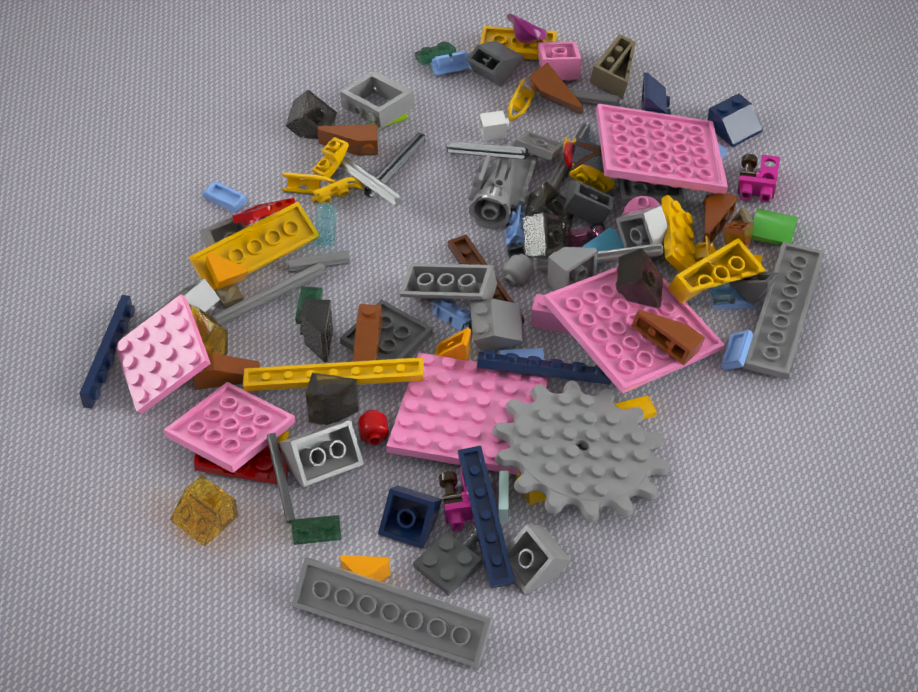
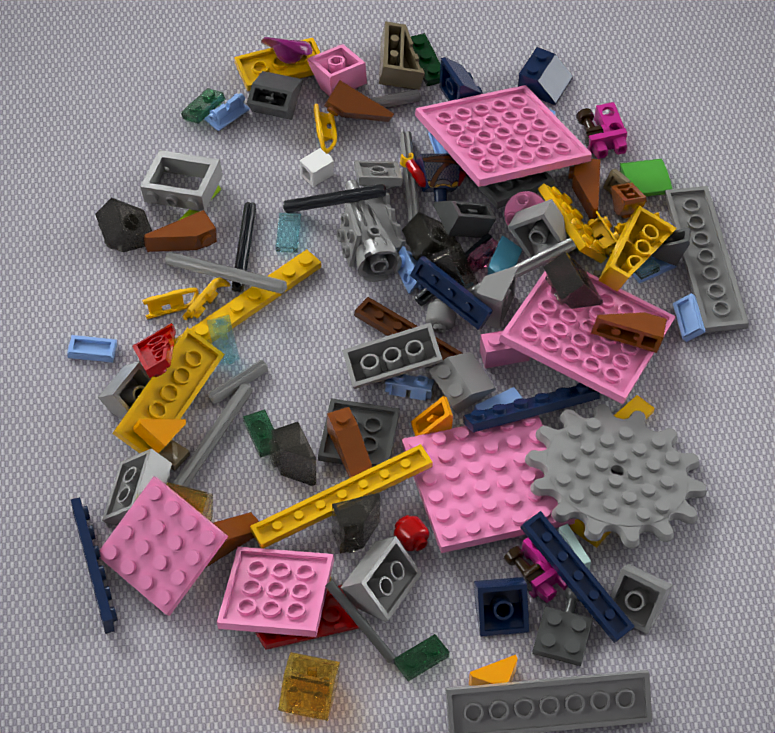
camera: 30 degrees left, 5 degrees up
(333, 156) = (180, 265): yellow slope -> none
(377, 205) = (255, 298): none -> yellow plate
(438, 166) = (288, 232): none -> clear light blue tile
(530, 251) = (451, 293): none -> dark blue plate
(592, 177) = (455, 190): yellow slope -> none
(641, 65) = (427, 59): none -> dark green plate

